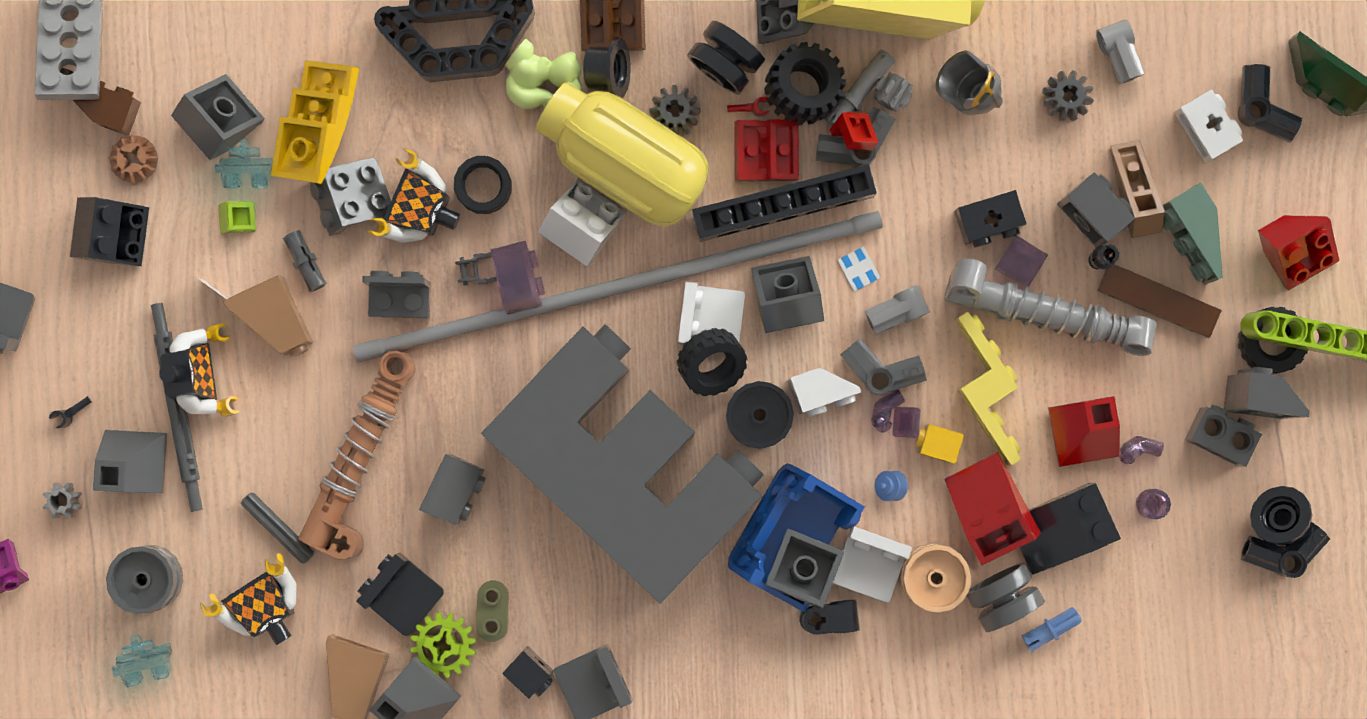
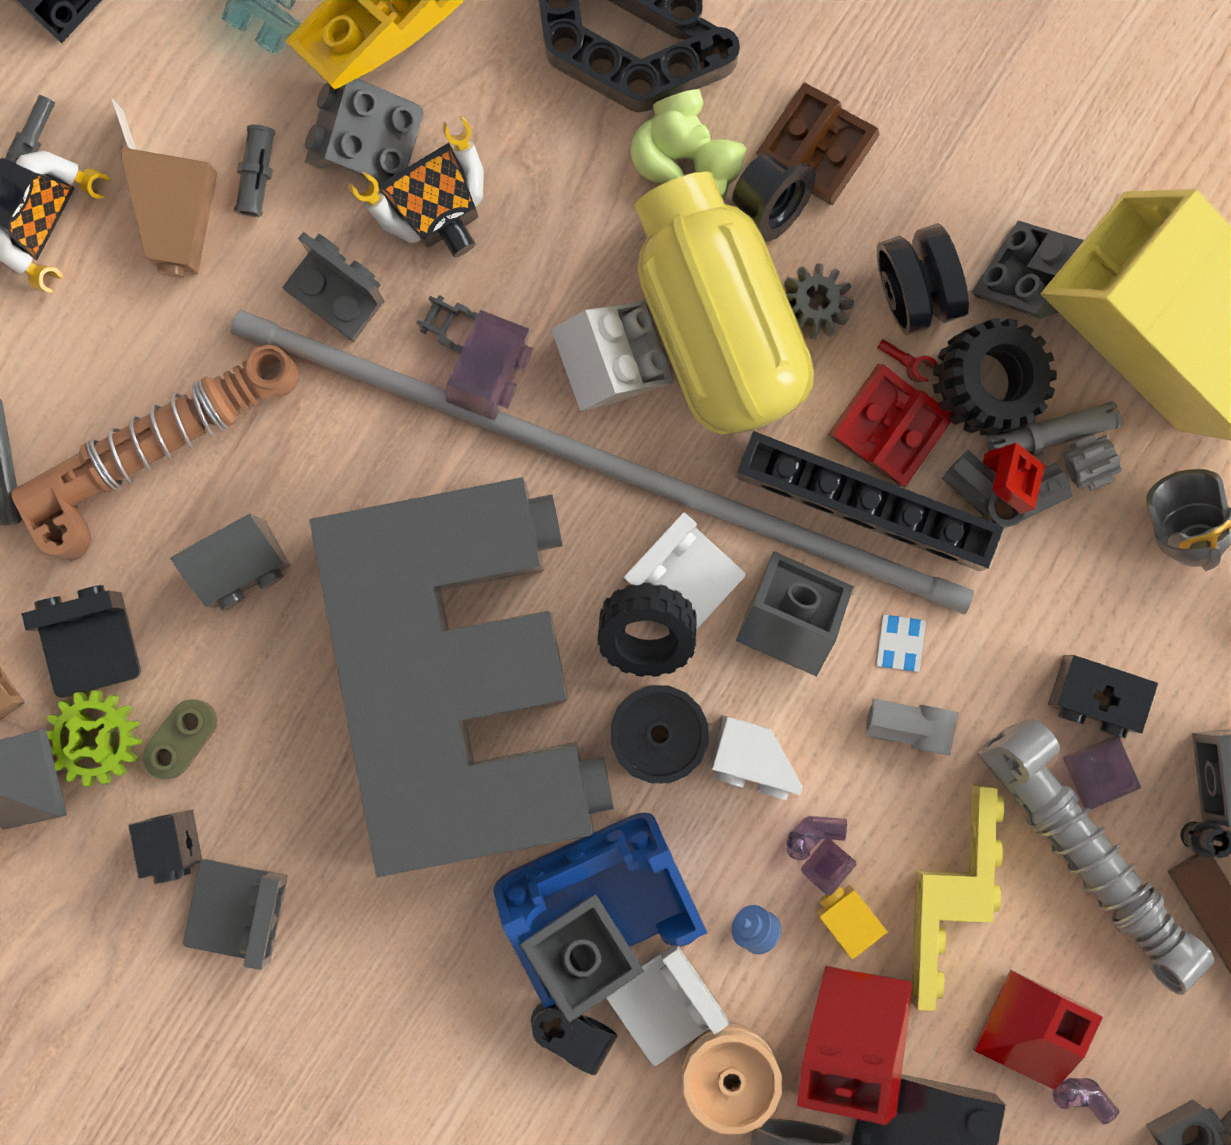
camera: 35 degrees right, 0 degrees up
(237, 217) = (213, 64): lime slope -> none
(482, 162) = (526, 195): black tyre -> none
(898, 374) = (858, 802): dark grey piece -> none

